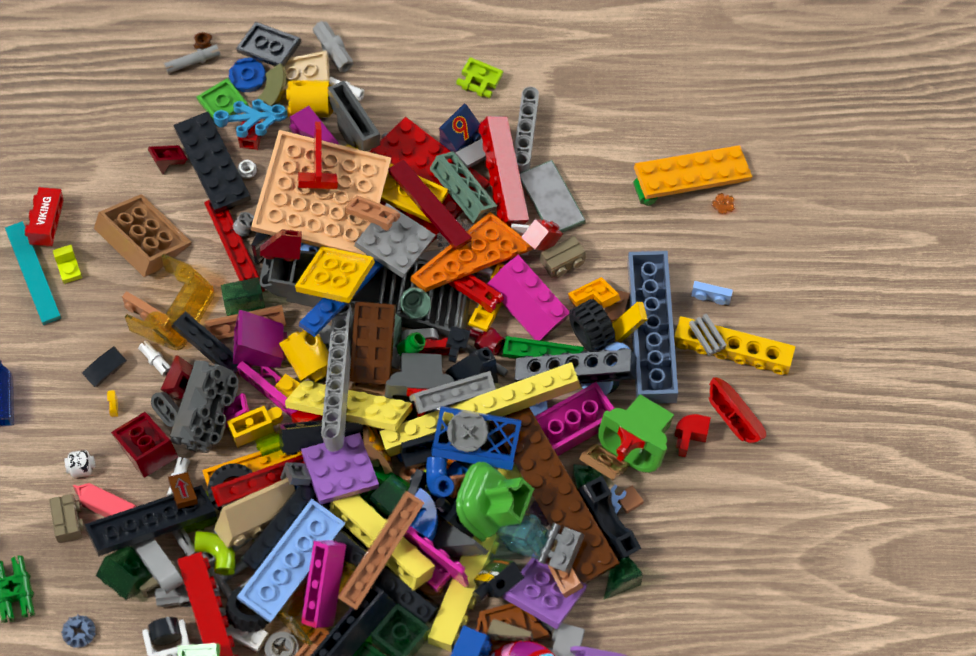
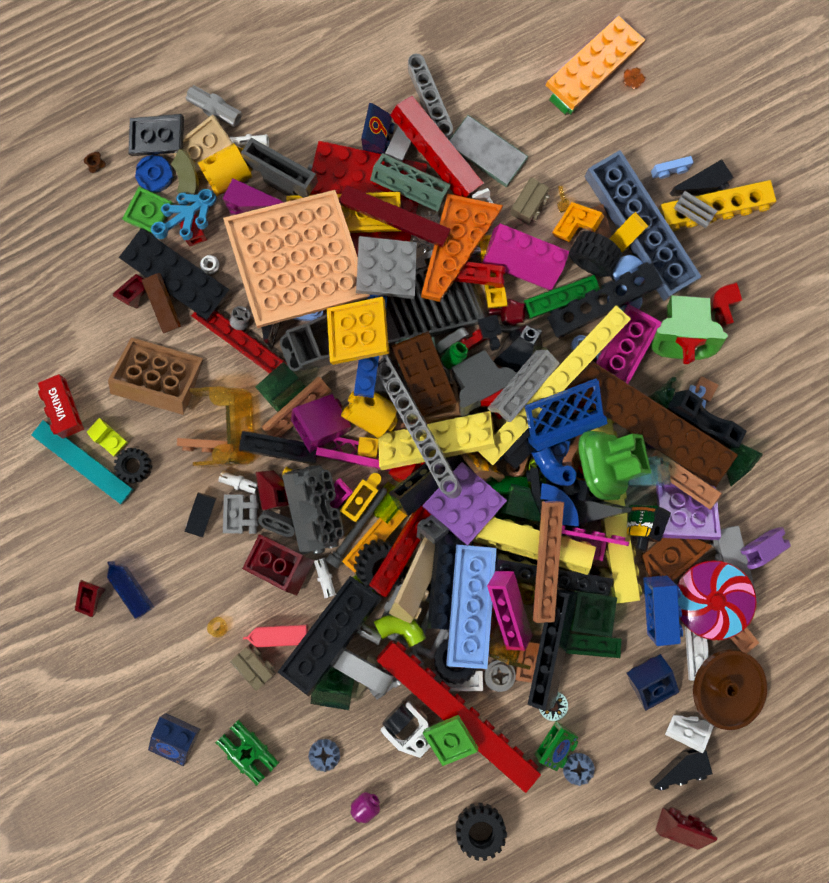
camera: 30 degrees left, 20 degrees up
(56, 474) = (221, 631): none -> clear yellow piece
(69, 287) = (122, 460): none -> black tyre
(79, 464) = (234, 612): white head -> none
(113, 403) = (226, 540): yellow tile -> none
(133, 382) = (234, 514): none -> light grey plate
(182, 490) = (339, 592): reddish brown tile -> none
(185, 178) = (161, 303): none -> reddish brown tile
(191, 59) = (96, 184): light grey pin -> none
(199, 465) = (336, 557): none -> dark grey piece
(283, 244) = (295, 328): dark red slope -> none
(317, 179) = (287, 247): red piece -> none
(372, 212) = (355, 253): nougat plate -> none
(415, 303) = (438, 316): sand green hair -> none
(467, 431) = (558, 414): light grey tile -> none
(482, 73) = (360, 63): lime plate -> none
(506, 632) = (677, 565): dark tan slope -> none
(542, 234) = (505, 191): brick -> none
(565, 551) = (692, 469): flat silver plate -> none
(593, 275) = (564, 203): none -> clear yellow hand
(604, 461) = (671, 370): medium nougat tile -> none
(735, 412) = (751, 266): red brick -> none
(736, 318) = (707, 181): none -> black slope

